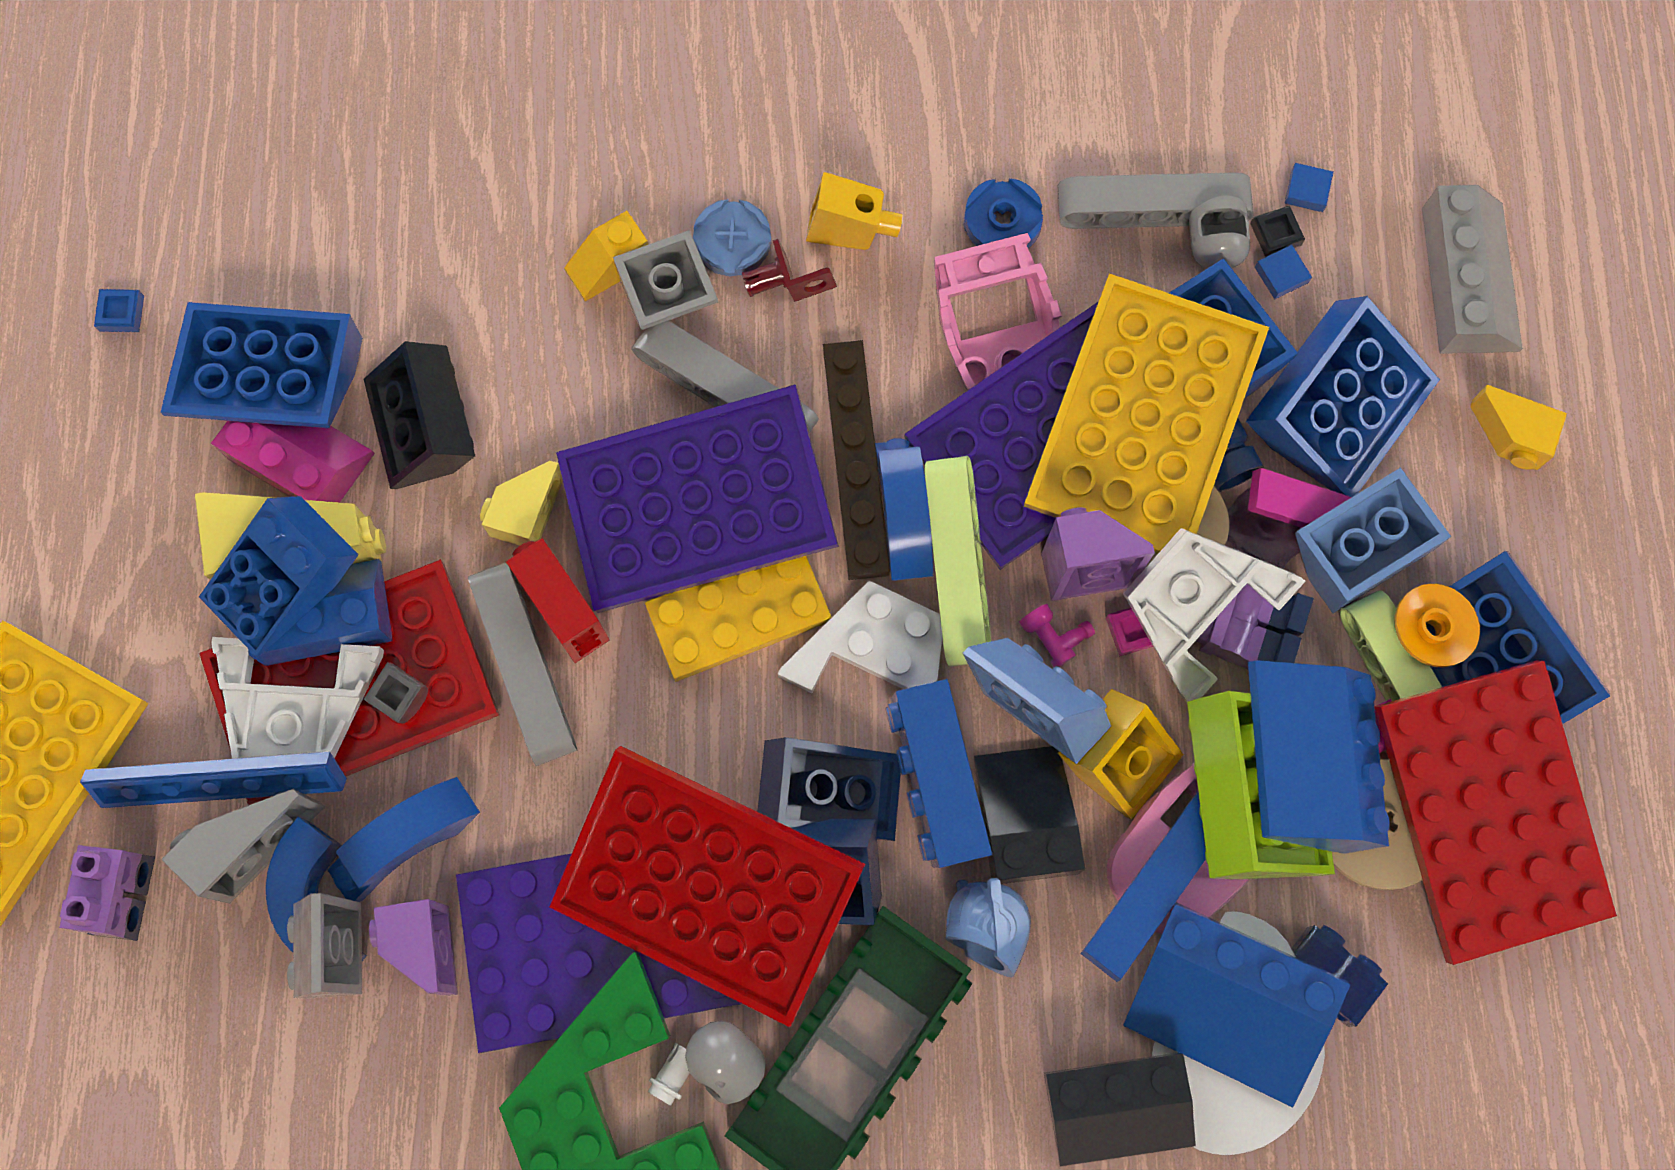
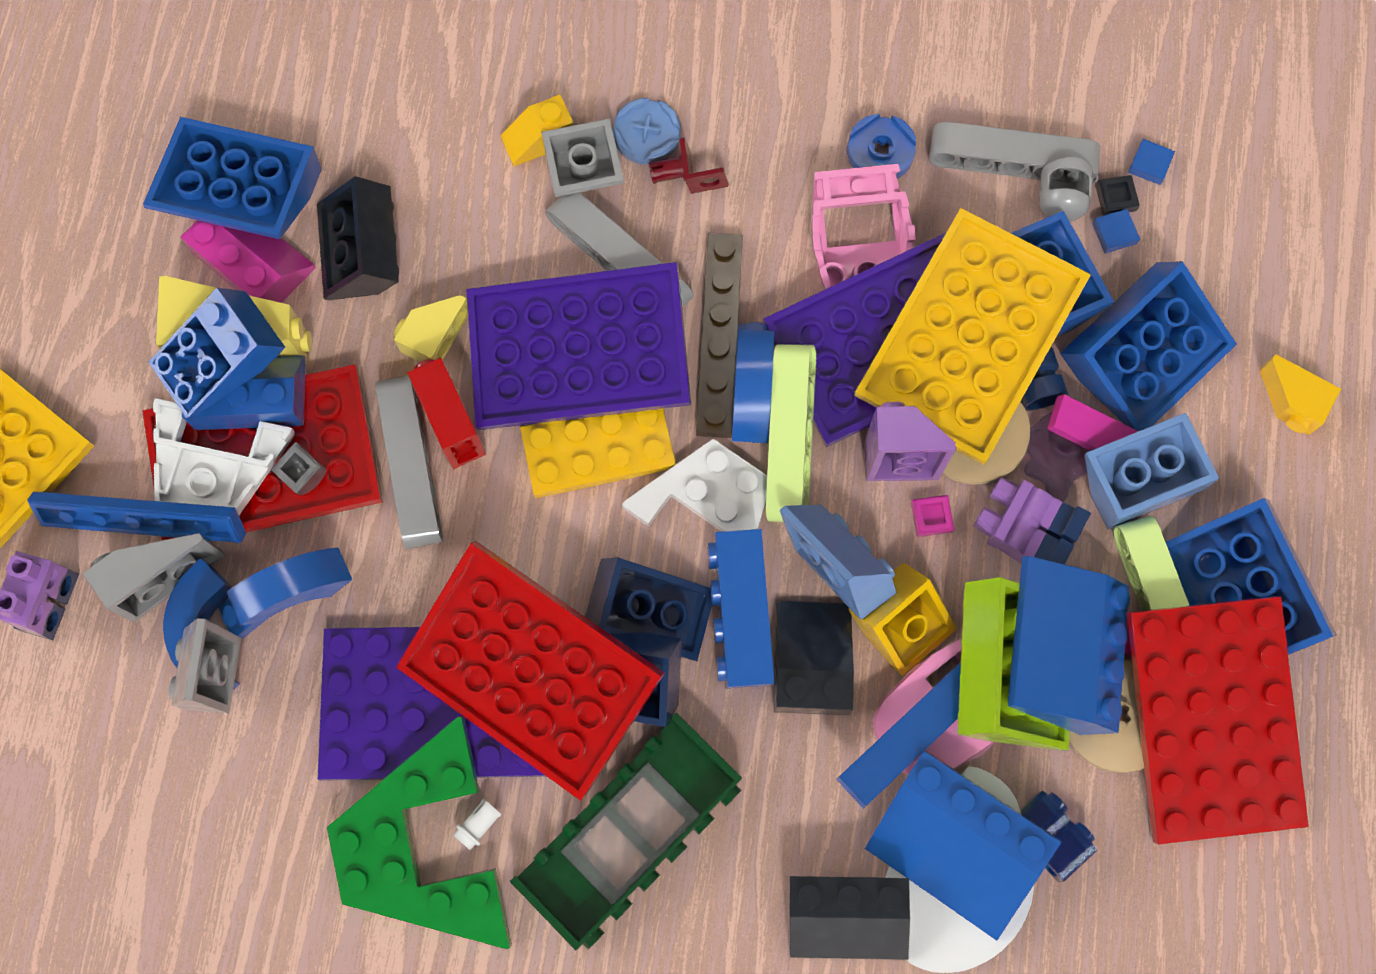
camera: 10 degrees right, 0 degrees up
(119, 310) = (123, 116): blue tile -> none
(417, 943) = (282, 678): medium lavender slope -> none
(725, 1061) = (521, 820): light grey helmet -> none
(849, 214) = (749, 125): yellow torso -> none
(989, 924) = (764, 744): medium blue helmet -> none
(1058, 646) = (865, 520): dark pink piece -> none
(1188, 590) = (984, 486): white wing -> none
(1449, 614) = (1205, 542): light orange dish -> none
(1470, 271) = (1280, 255): light grey slope -> none

